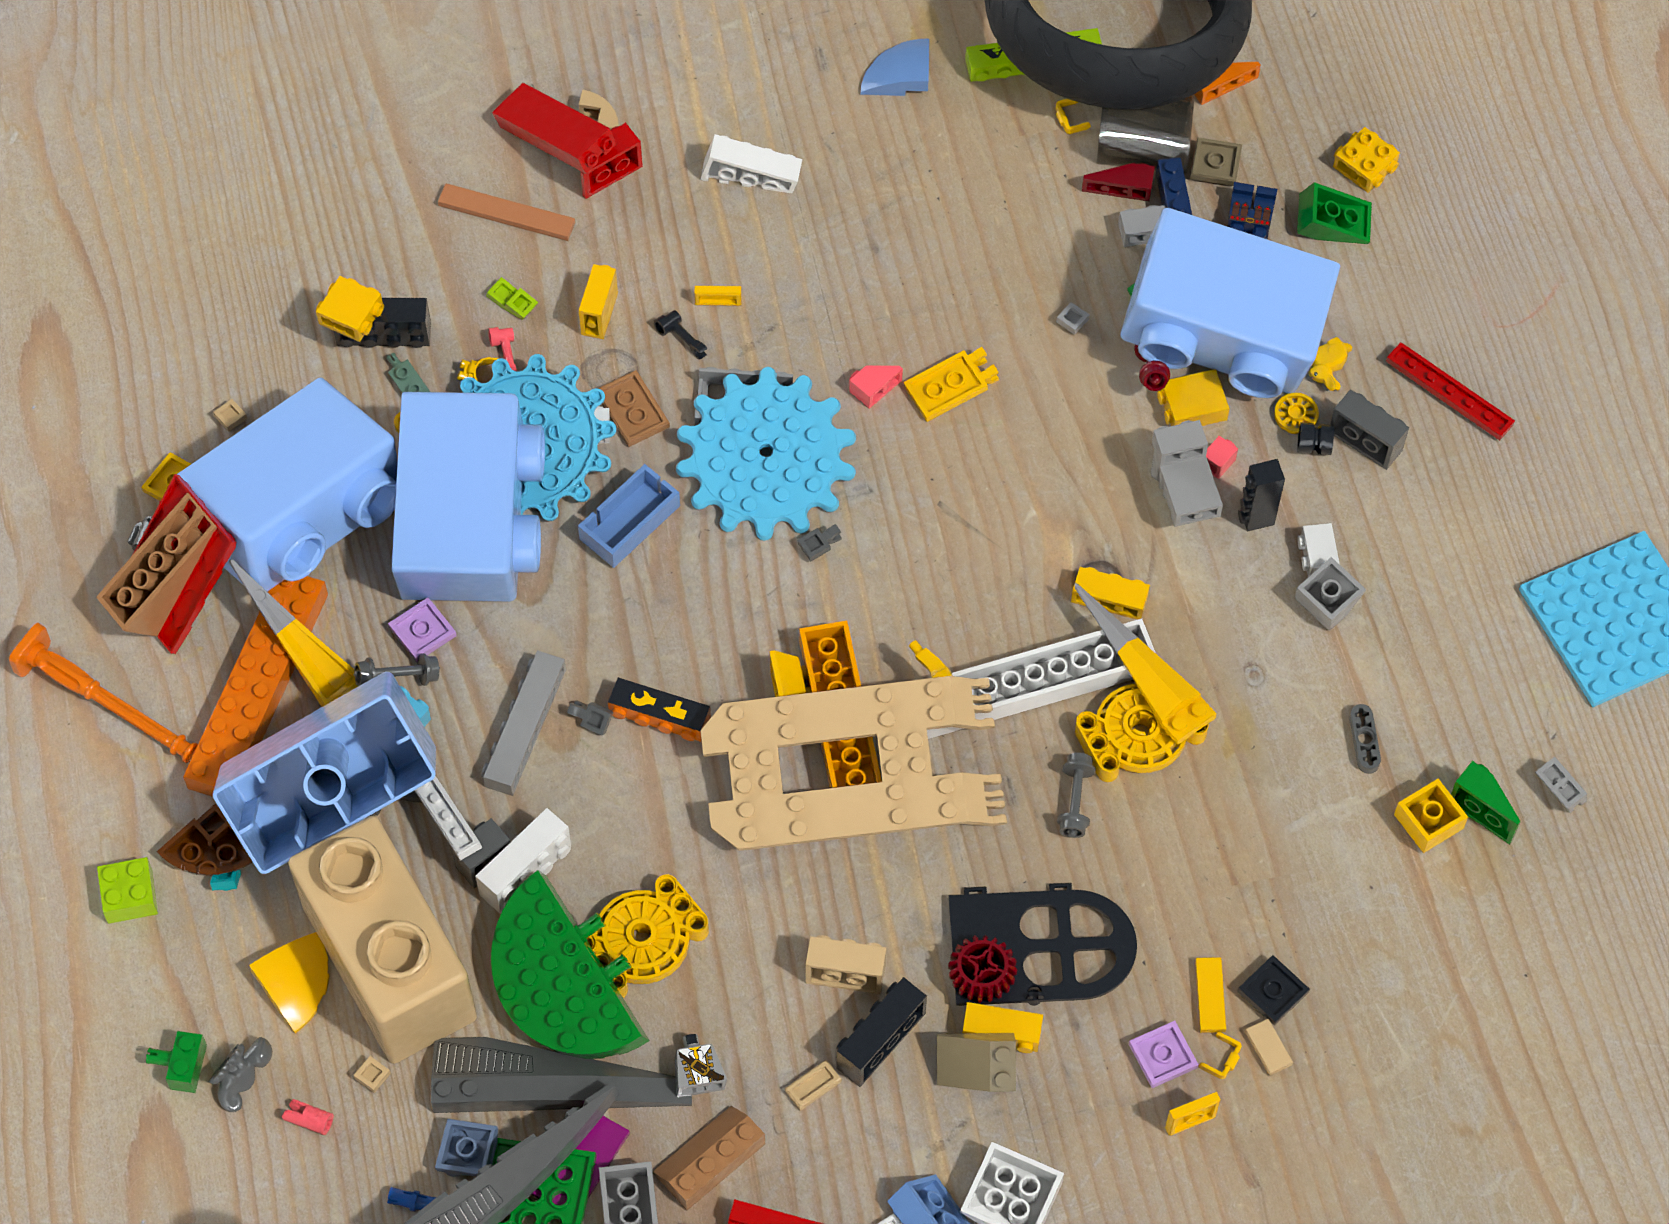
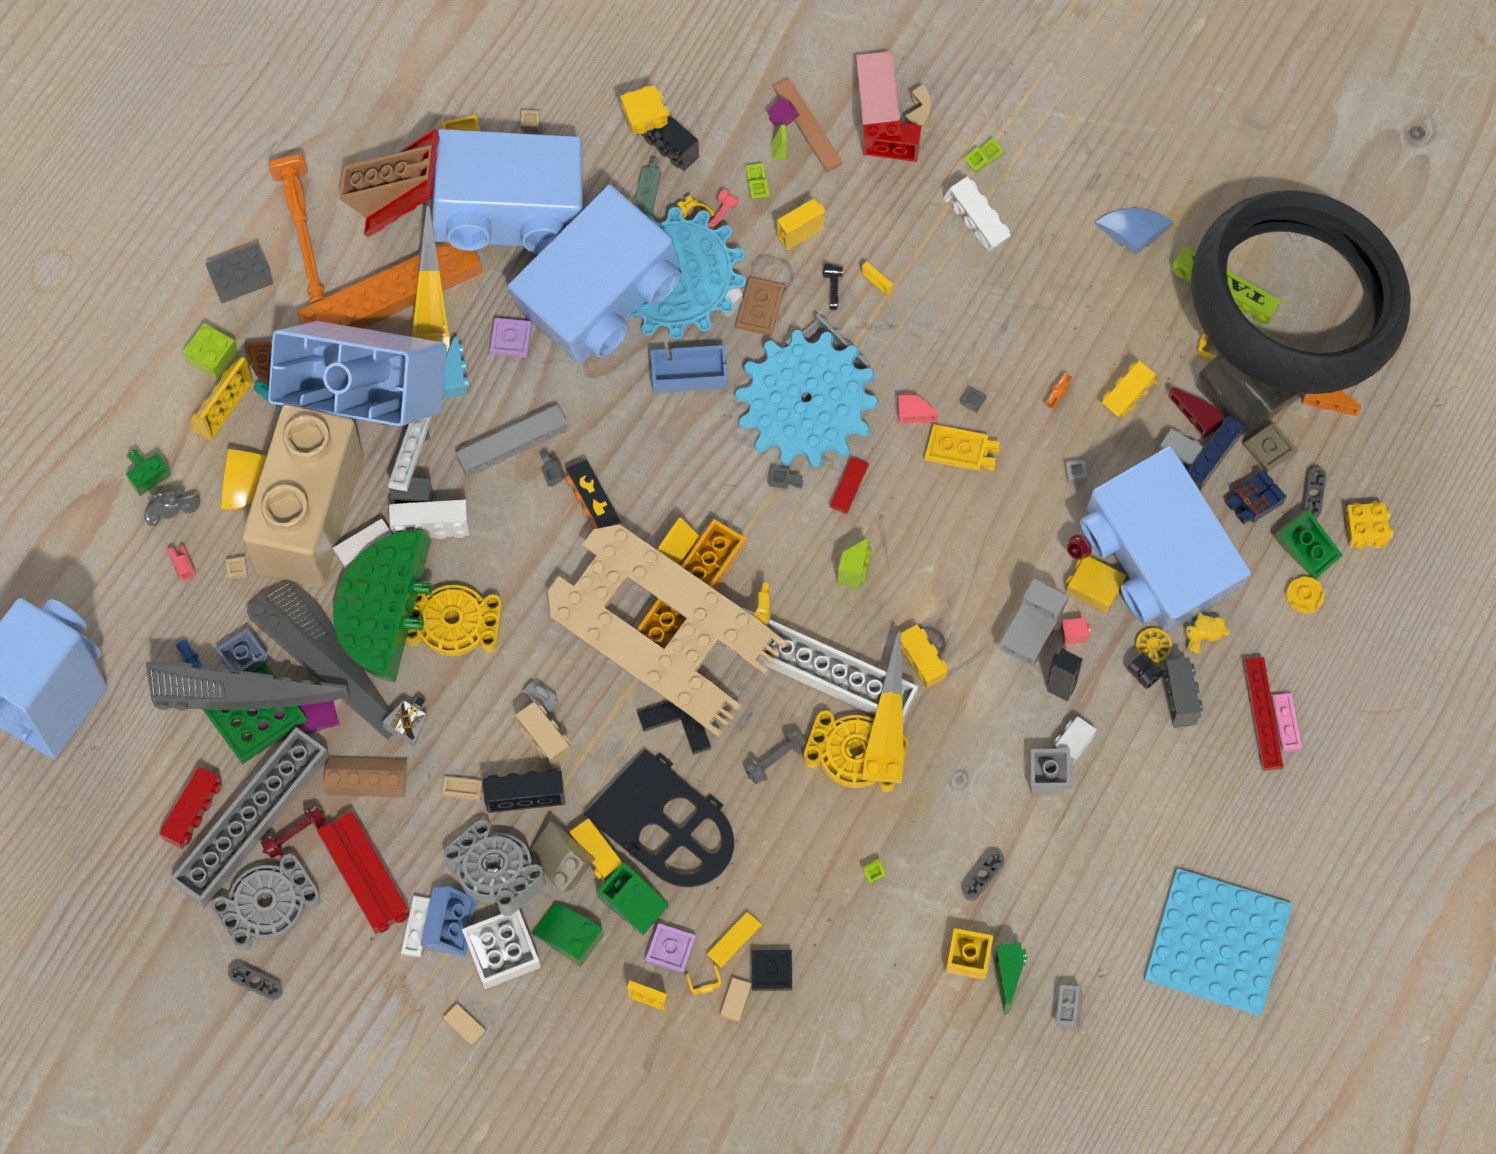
camera: 45 degrees right, 5 degrees up
(80, 792) = (239, 273): none -> dark grey brick
(189, 924) = (222, 401): none -> yellow slope
(427, 670) = (490, 363): dark grey piece -> none
(475, 218) = (783, 113): none -> magenta brick
(478, 939) = (352, 547): none -> white brick
(501, 245) = (779, 144): none -> lime slope
(699, 111) = (984, 156): none -> lime slope
(799, 932) = (541, 696): none -> light grey piece
(884, 499) = (849, 485): none -> red tile
(915, 332) = (973, 399): none -> flat silver tile
(921, 1104) = (489, 851): none -> light grey piece
(963, 835) = (669, 713): none -> black plate
(970, 563) = (854, 565): none -> lime slope
(983, 262) = (1058, 390): none -> orange pin
(999, 978) = (601, 814): dark red gear -> none
(1048, 208) = (1129, 390): none -> yellow wedge
(1056, 1126) = (568, 933): none -> green slope
(1082, 1040) = (632, 899): none -> green slope
(1268, 819) = (874, 871): none -> lime slope
(1291, 161) = (1319, 487): none -> dark grey beam
(1375, 262) = (1305, 595): none -> yellow tile
(1476, 381) = (1286, 722): none -> bright pink tile

